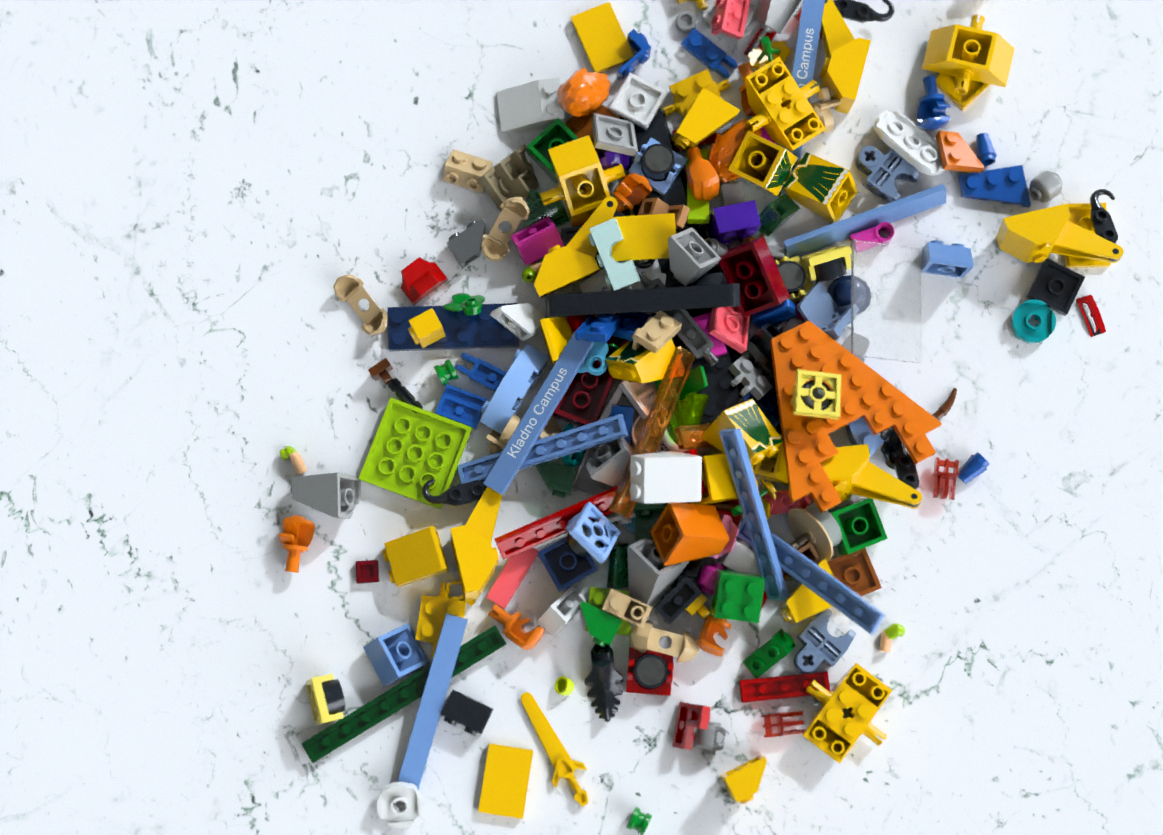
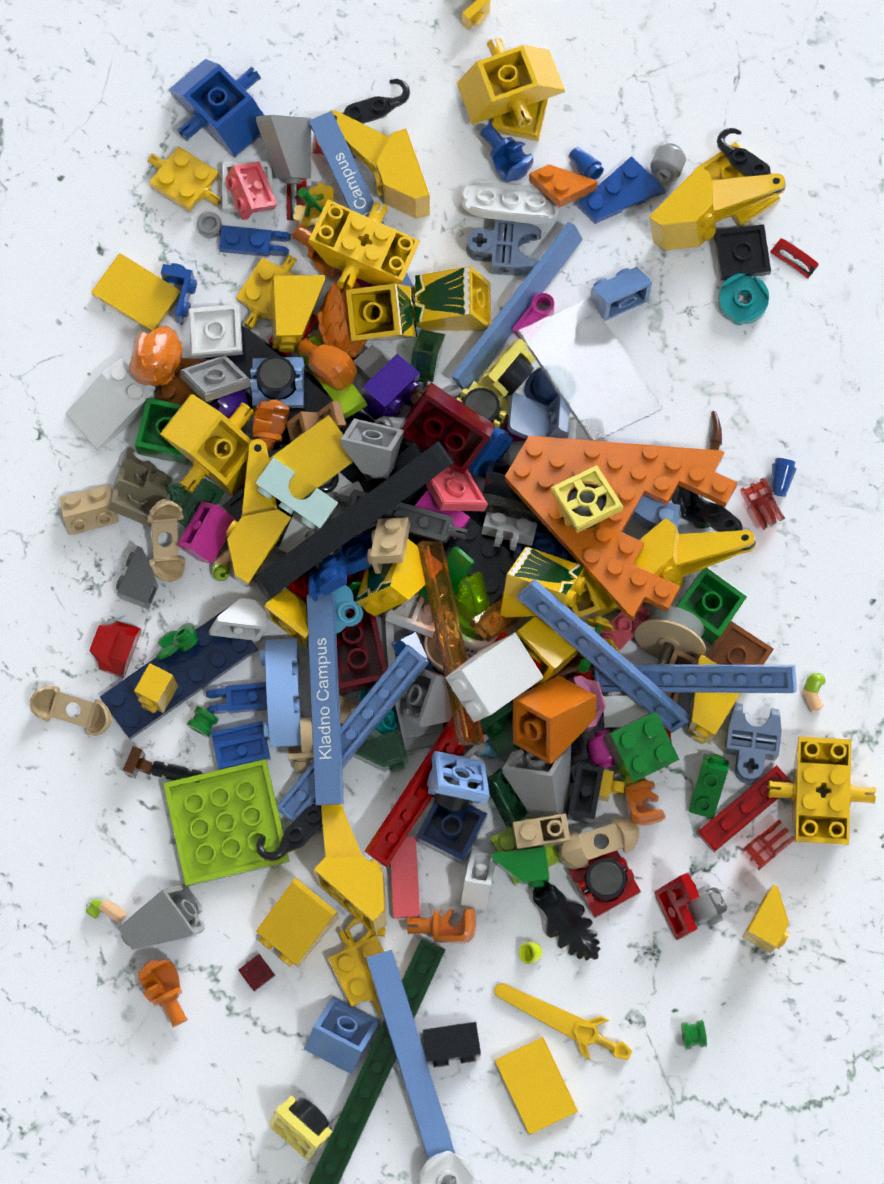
camera: 30 degrees left, 5 degrees down
(822, 108) = (402, 220): tan piece -> none

